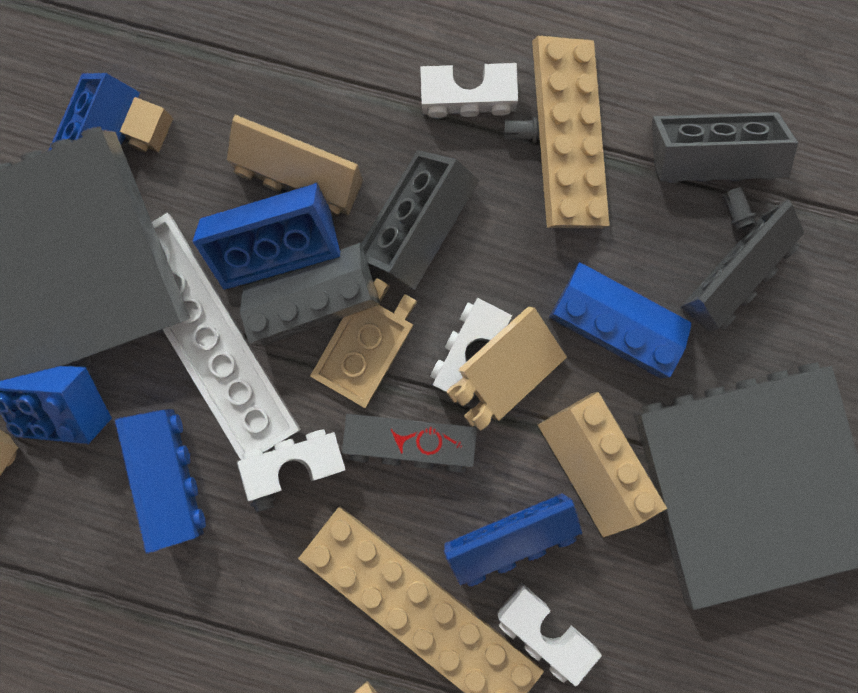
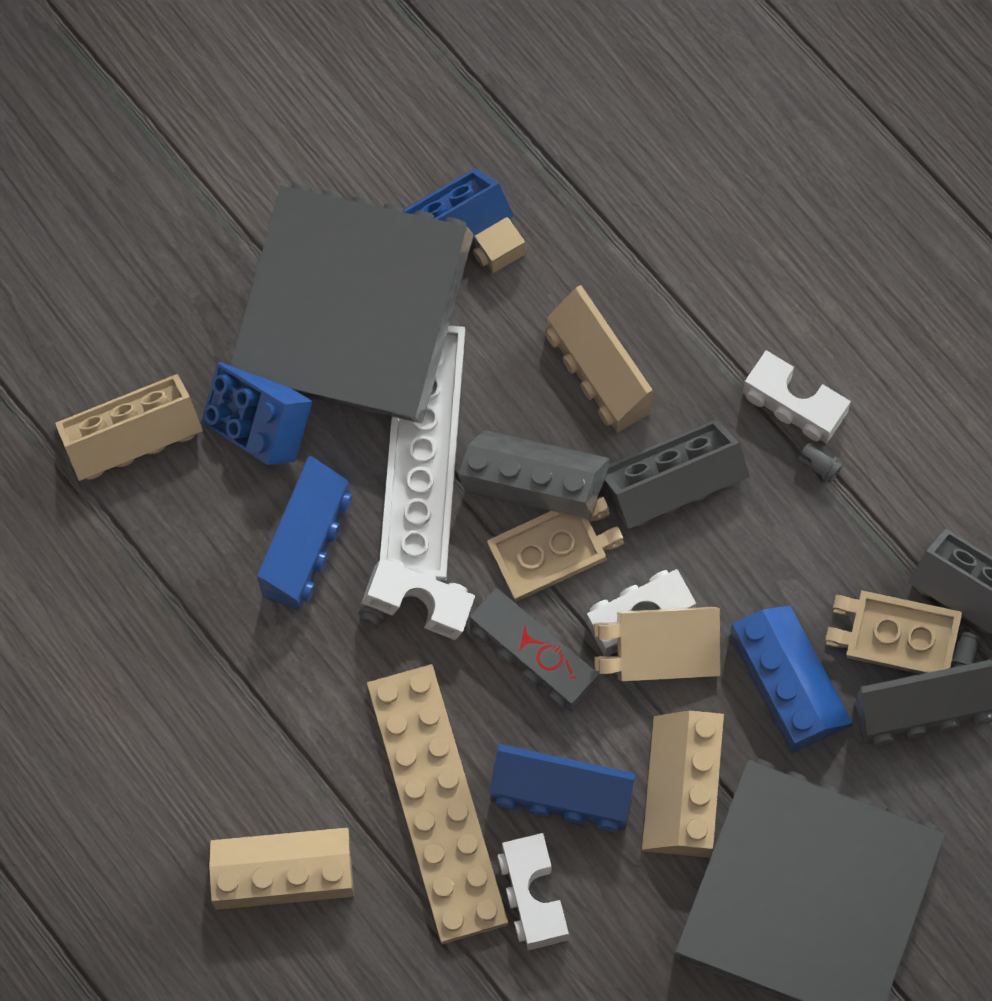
camera: 30 degrees right, 15 degrees down
(268, 237) = (535, 402): blue slope -> none
(570, 133) = (858, 492): tan plate -> none
(683, 227) = (896, 632): none -> tan tile

